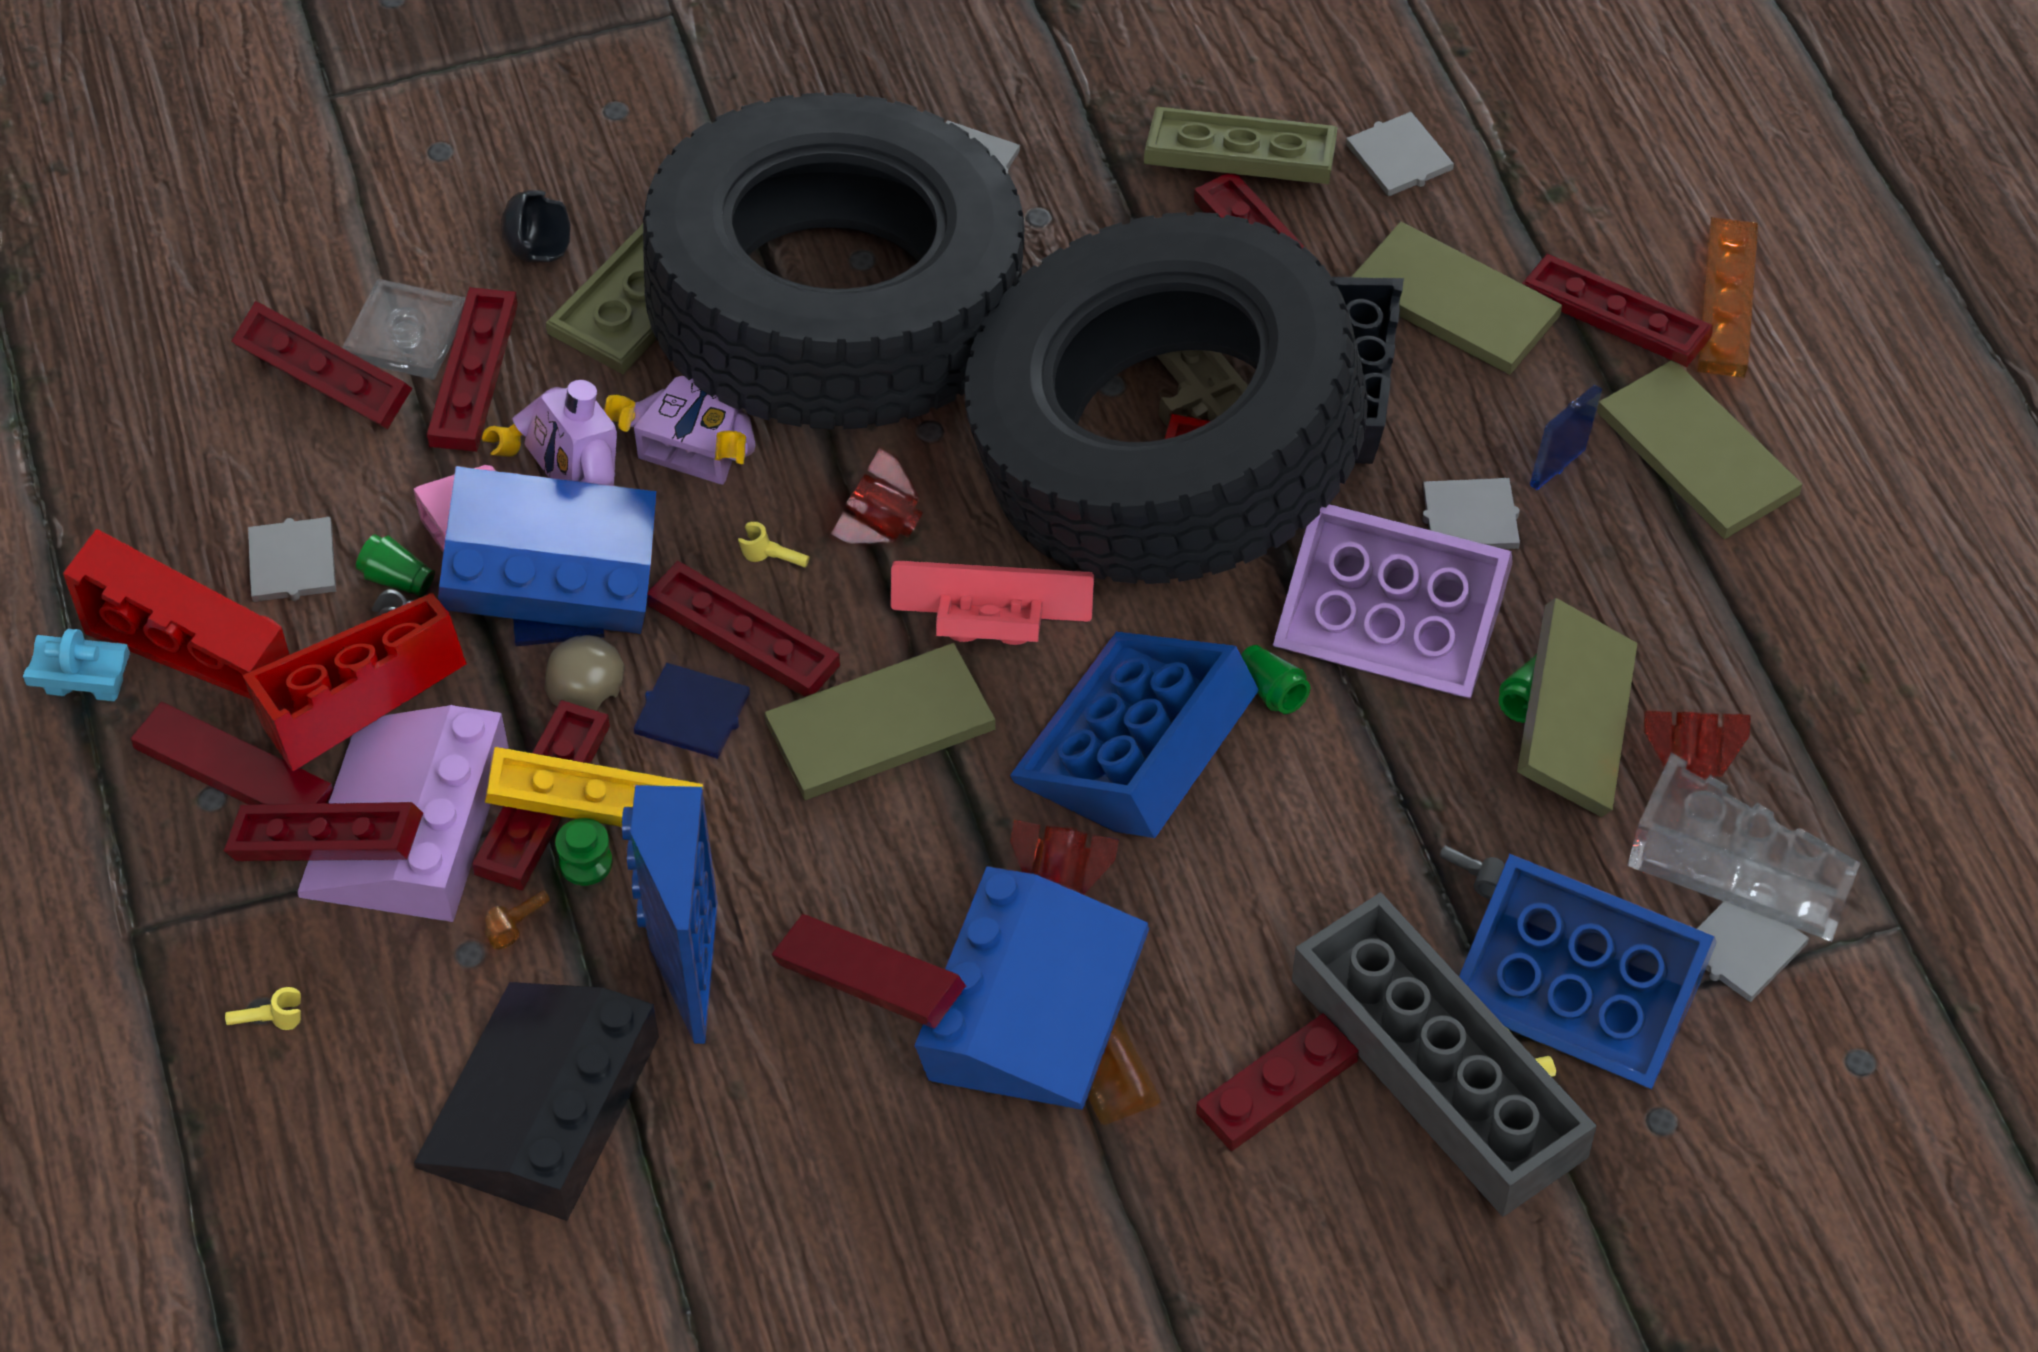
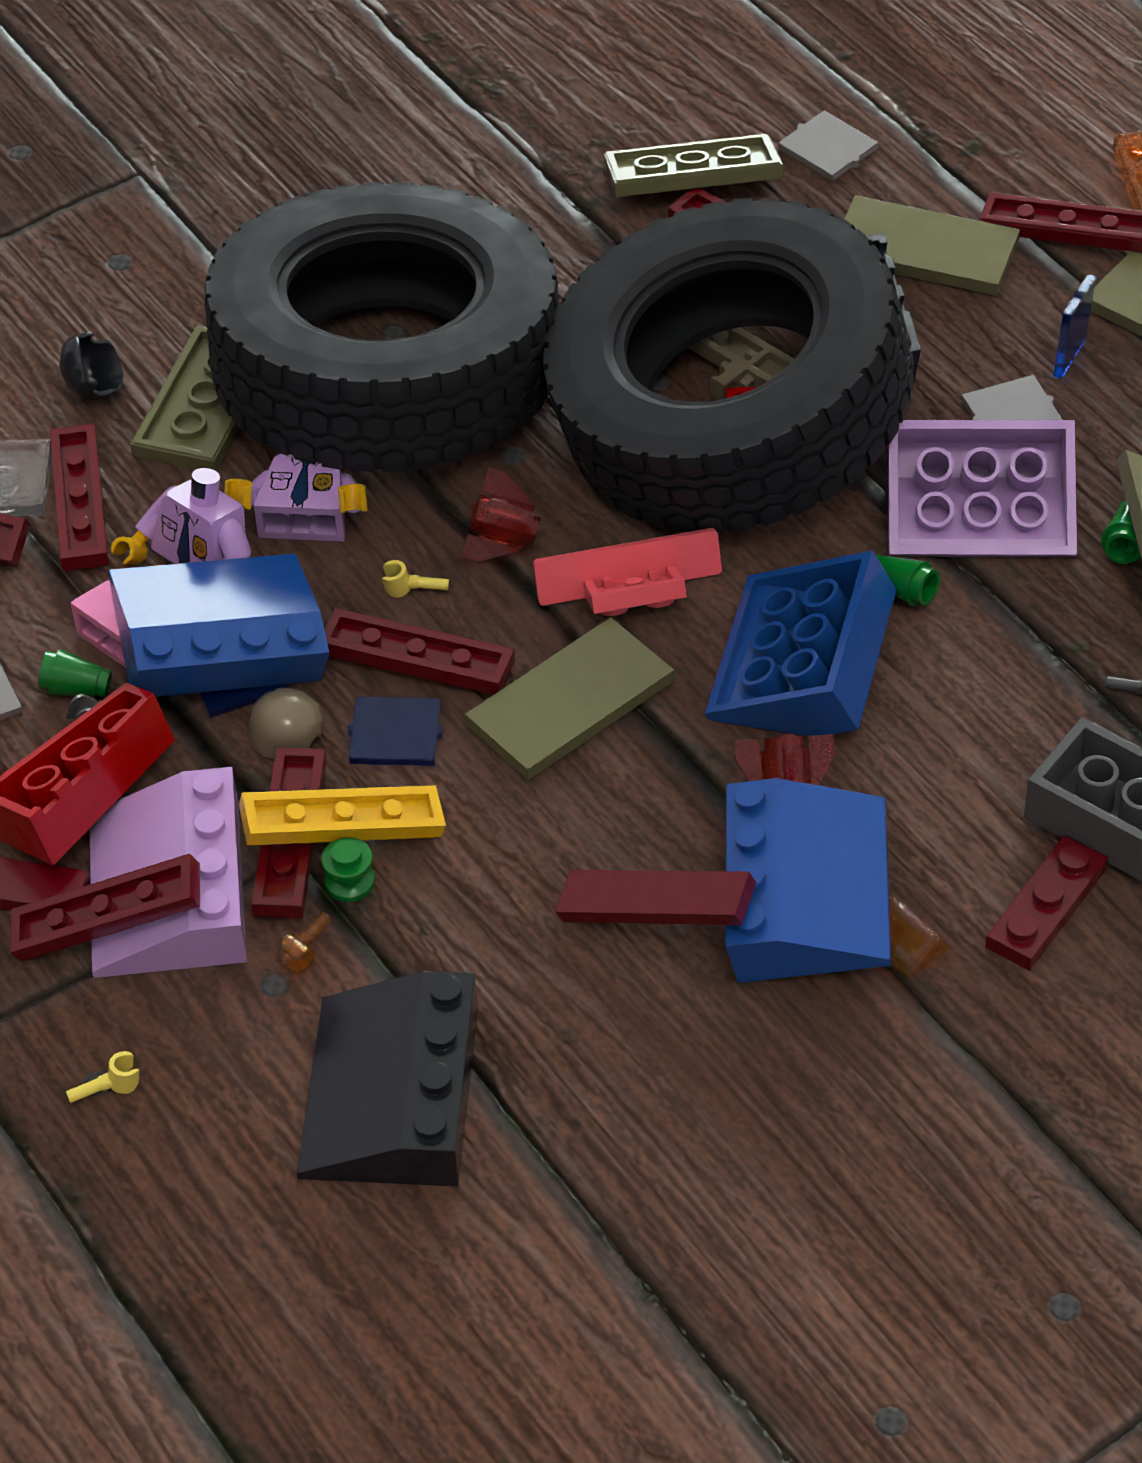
camera: 15 degrees left, 5 degrees down
(675, 892) = (466, 873): blue slope -> none

